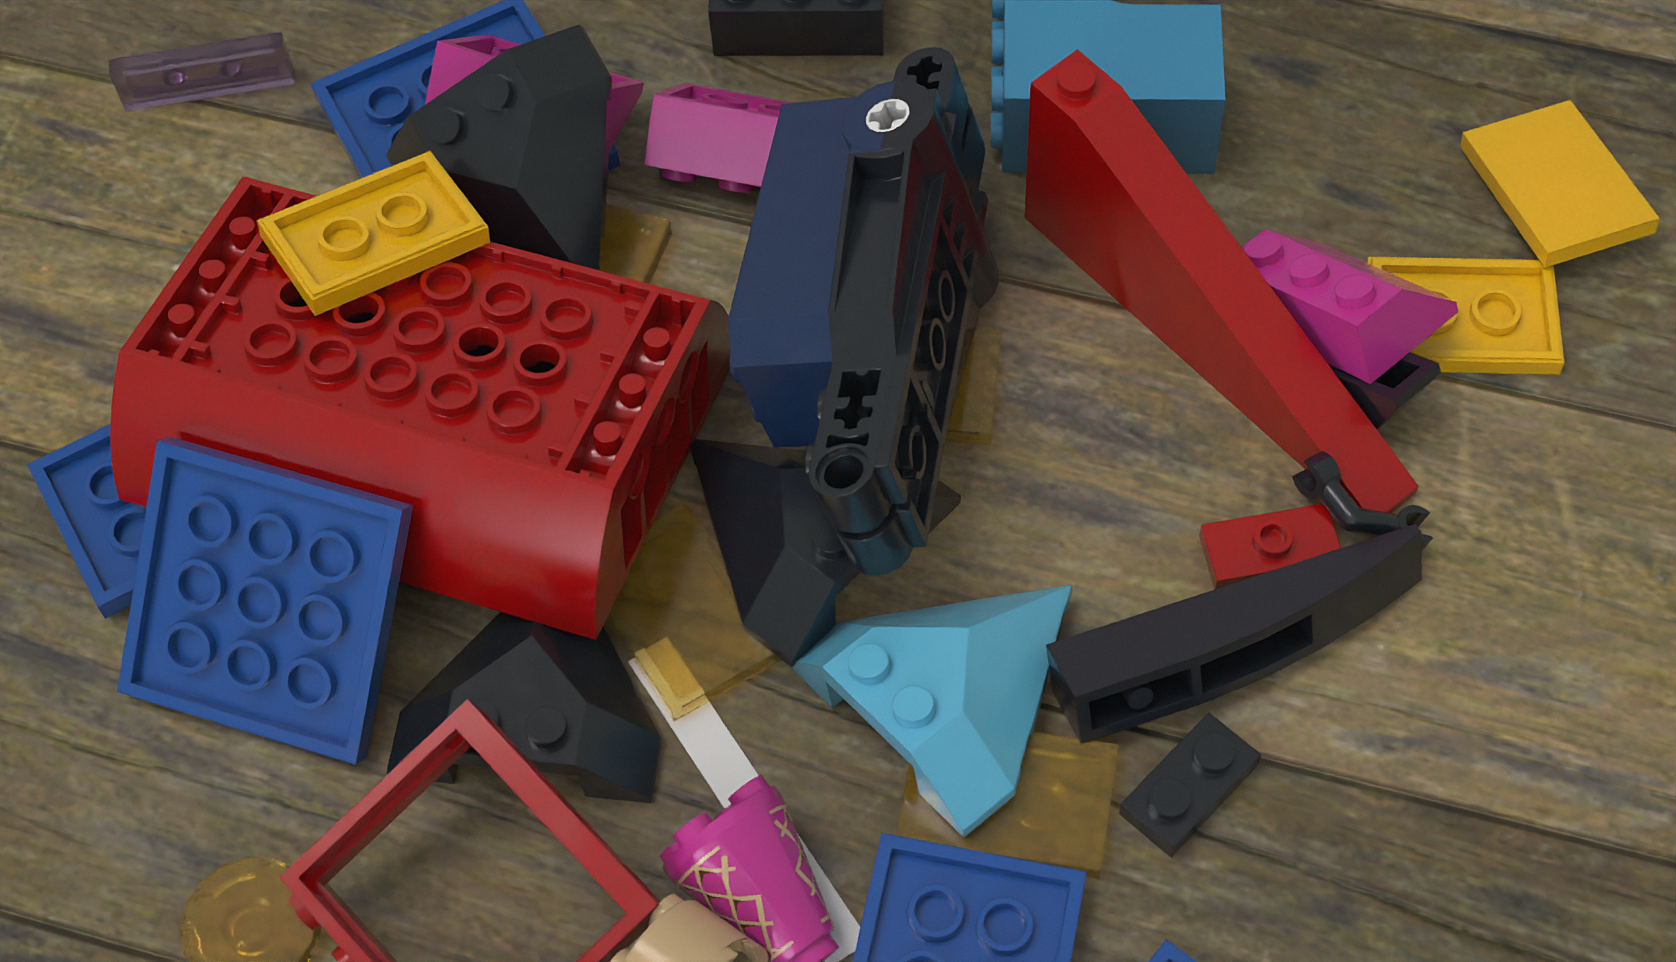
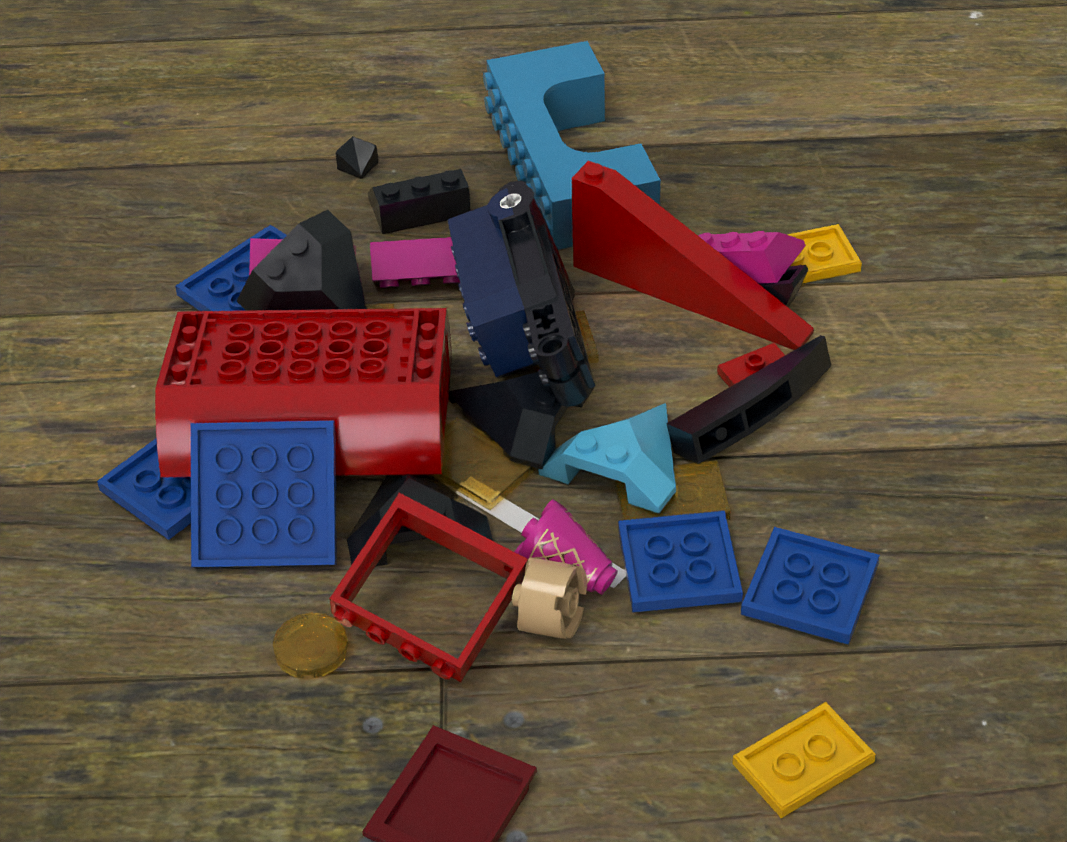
camera: 20 degrees left, 15 degrees down
(202, 71) = (111, 294): tile -> none
(373, 232) = (261, 315): yellow tile -> none
(1189, 784) = (757, 470): black plate -> none
(1323, 482) = (780, 338): black arm -> none
(1559, 183) = (828, 192): yellow tile -> none

